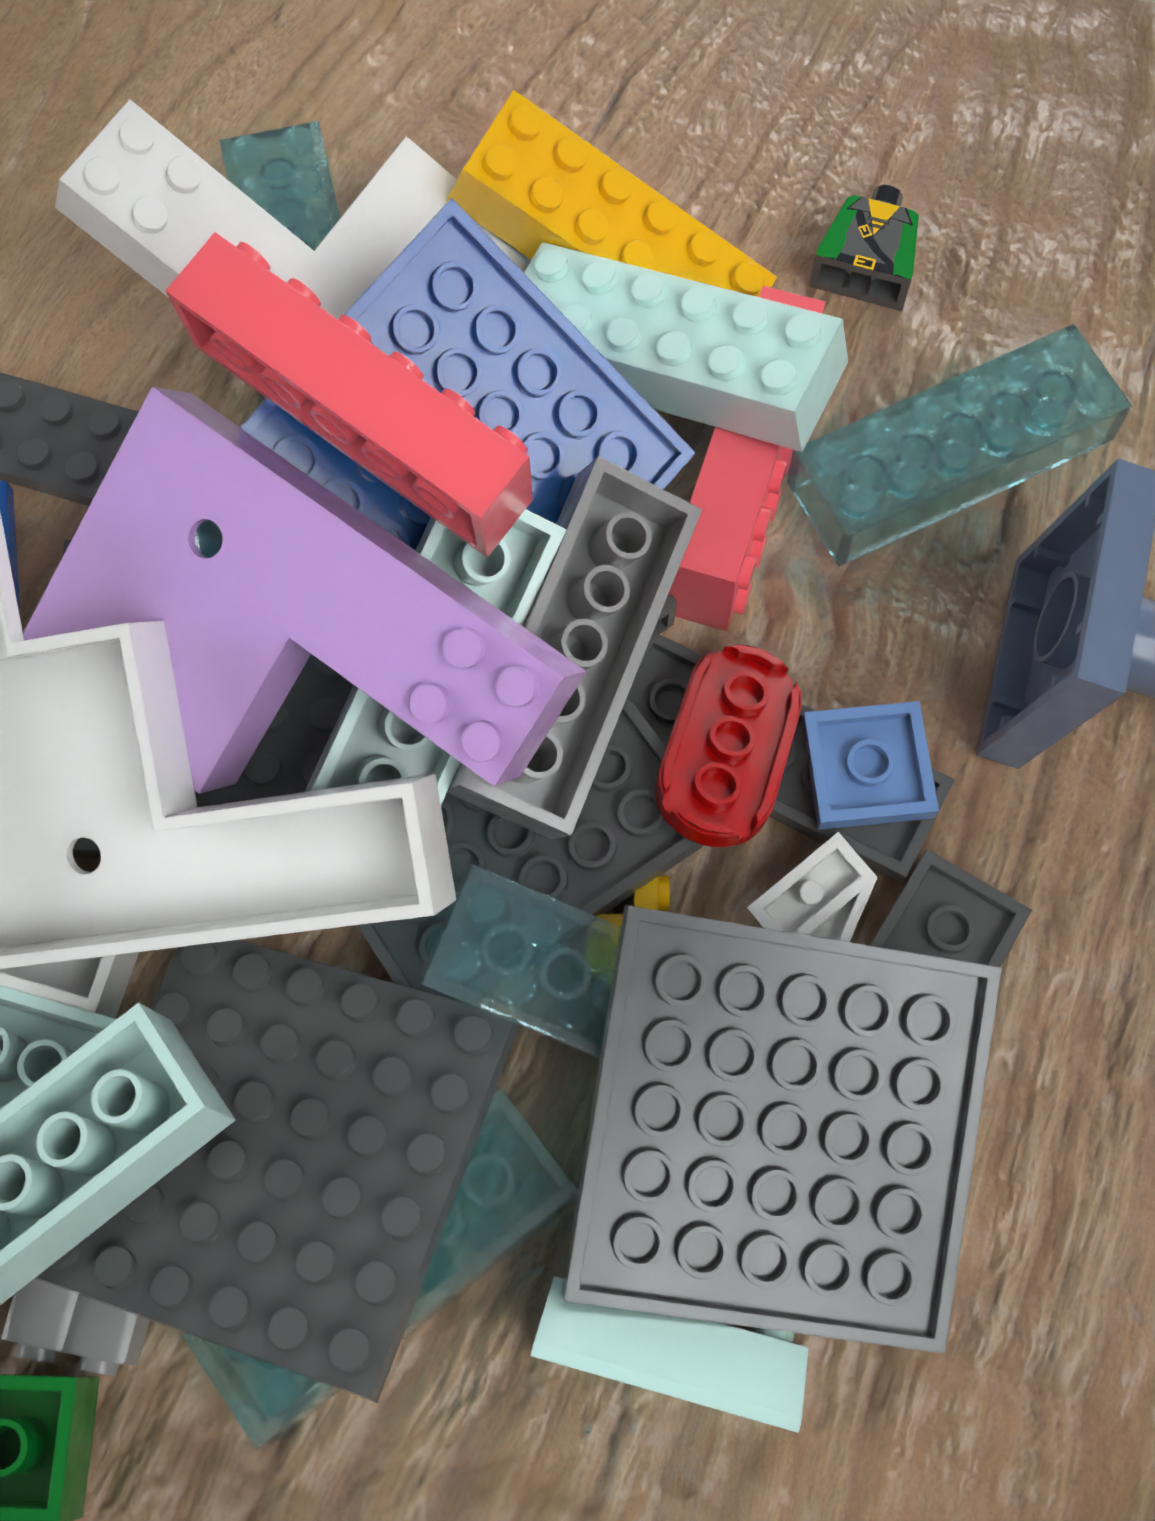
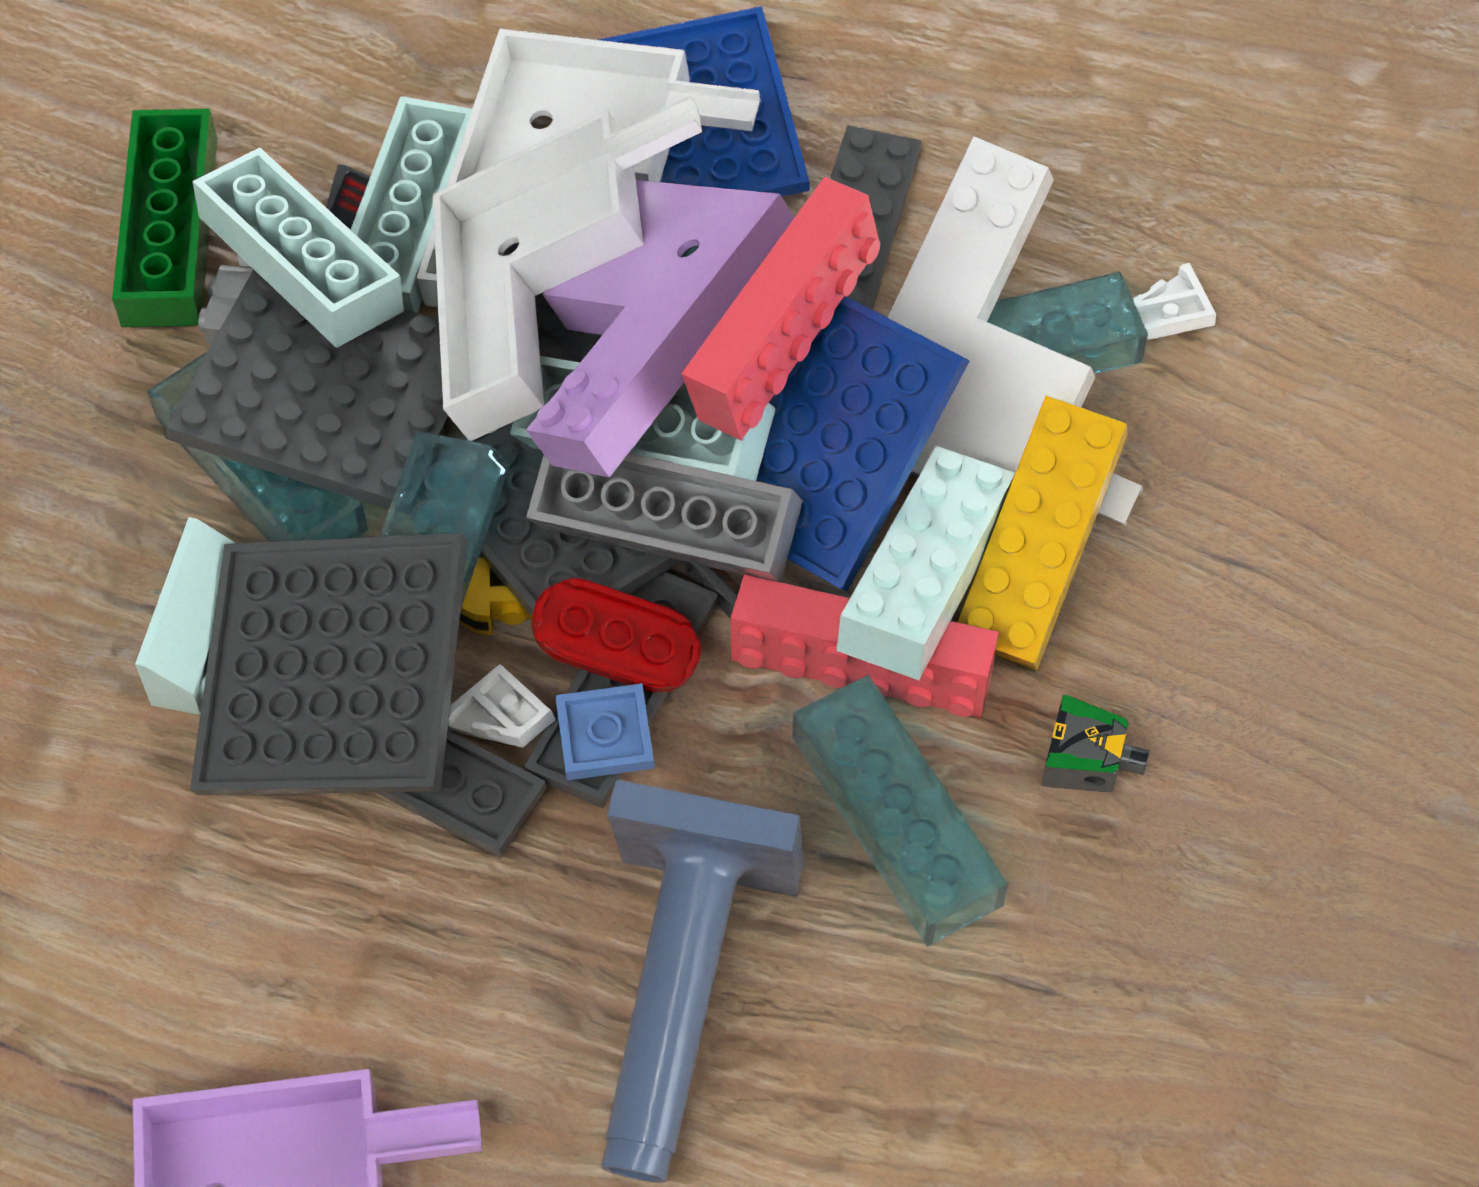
camera: 85 degrees right, 10 degrees down
(254, 103) = (1175, 305): none -> white wing

